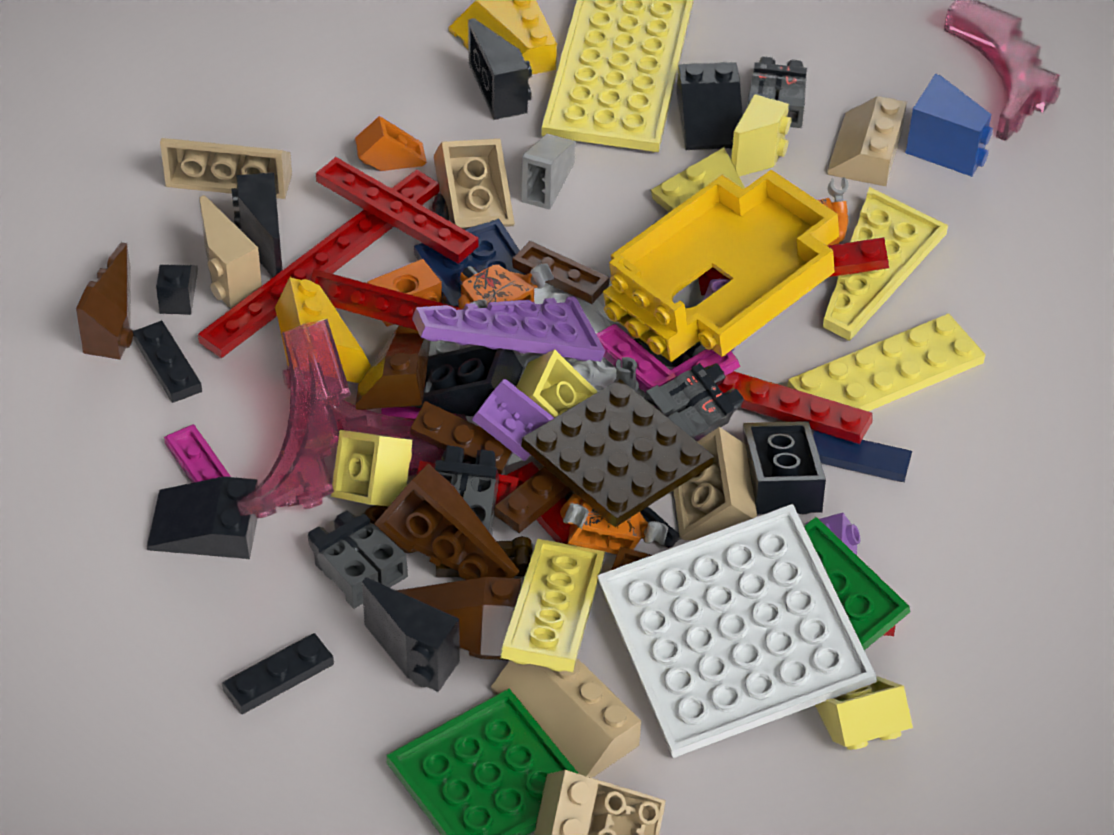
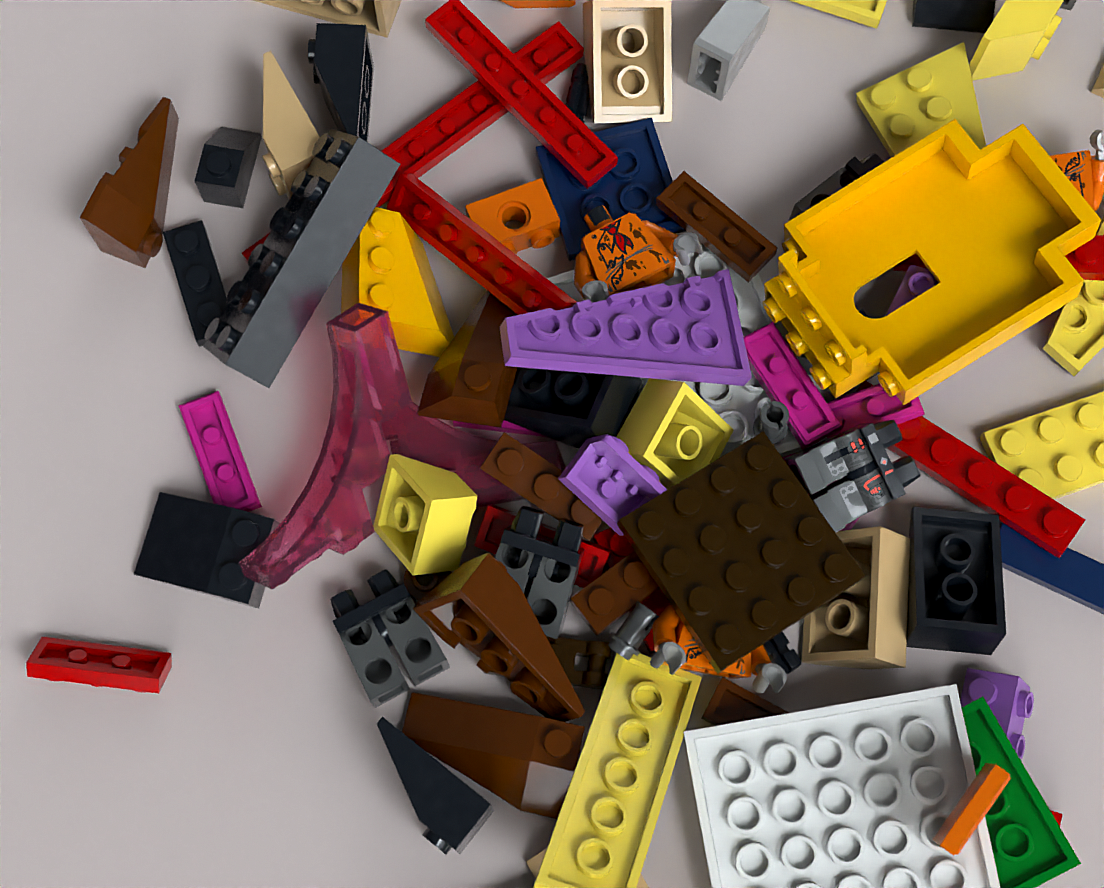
camera: 10 degrees right, 25 degrees up
(131, 603) = (99, 665): none -> red plate
(248, 315) = (300, 255): none -> black brick
(278, 673) = (265, 799): black plate -> none
(543, 526) = (632, 631): none -> dark grey pin
(815, 561) = (972, 808): none -> orange tile

